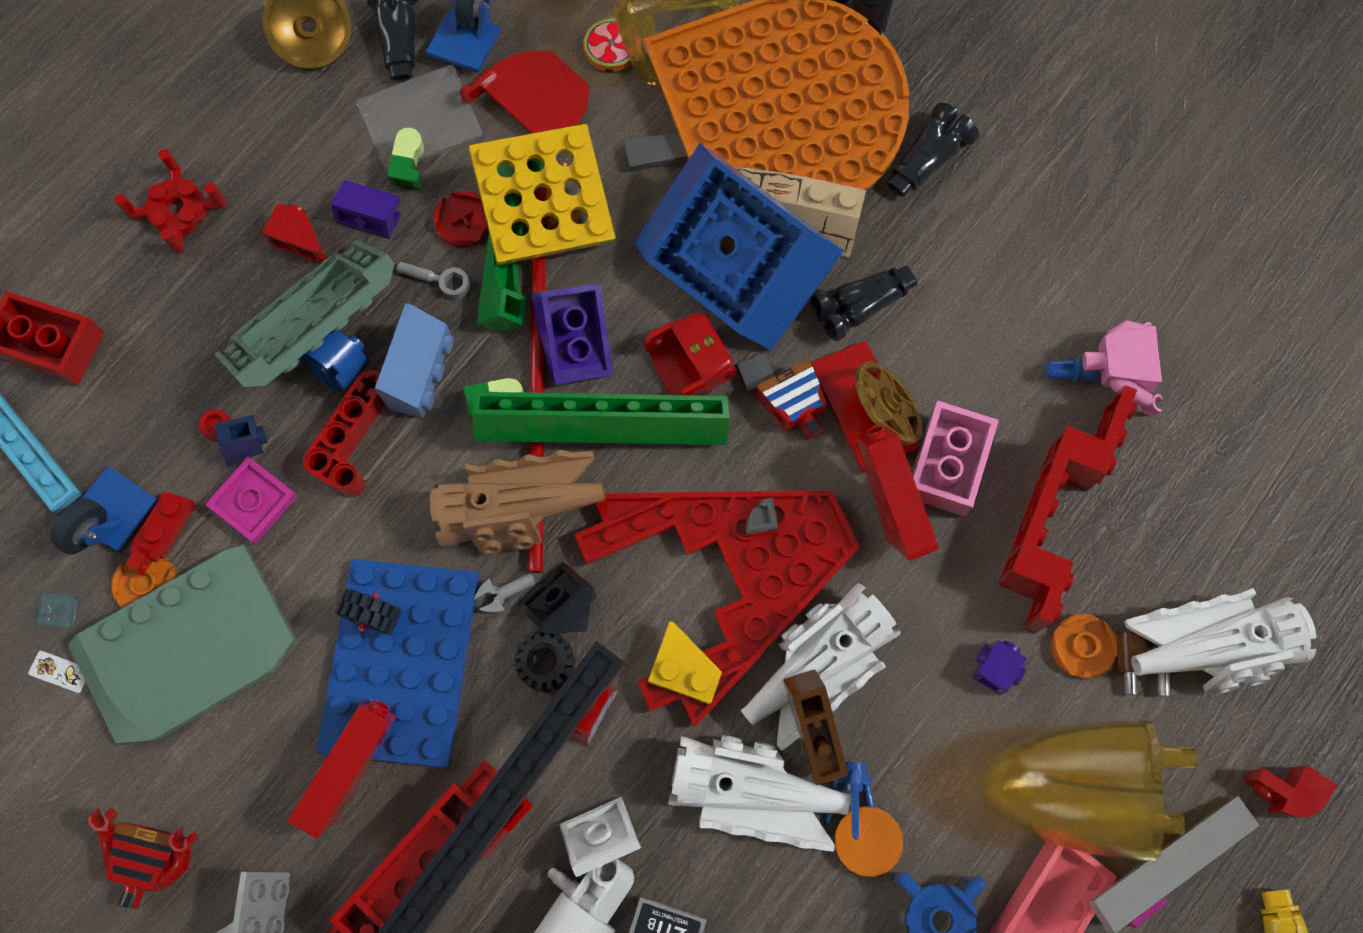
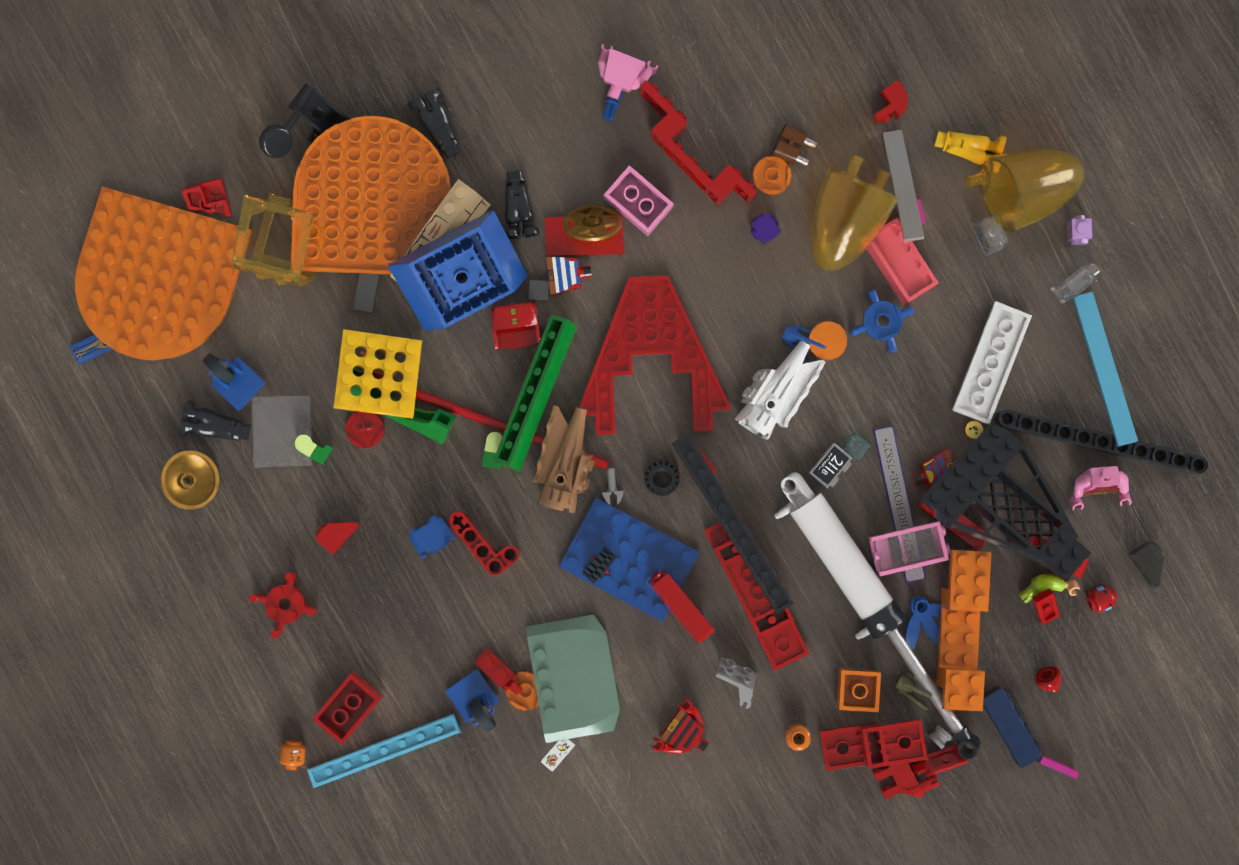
camera: 70 degrees left, 15 degrees up
(57, 610) = (522, 744): clear light blue tile -> none
(208, 421) = (442, 621): red tile -> none
(240, 439) = (455, 612): dark blue brick -> none
(251, 500) = (500, 613): dark pink plate -> none
(306, 314) = (401, 543): sand green slope -> none
(366, 209) = (336, 485): dark purple hinge -> none
(414, 362) = (455, 488): medium blue slope -> none
(429, 276) = (396, 462): light grey piece -> none
(534, 90) = (295, 350): red piece -> none
(559, 602) = (632, 458): black slope -> none
(573, 332) = (471, 388): dark purple slope -> none
(599, 836) = (769, 483): white tile -> none
(605, 47) = (277, 295): tile -> none
(684, 667) = (697, 402): yellow wing -> none
(762, 518) = (630, 324): dark grey tile -> none
(816, 645) = (725, 322): white piece -> none
(816, 726) = (759, 343): reddish brown slope -> none
(896, 493) = (650, 244): red slope -> none
(1225, 639) = (800, 100): white piece -> none

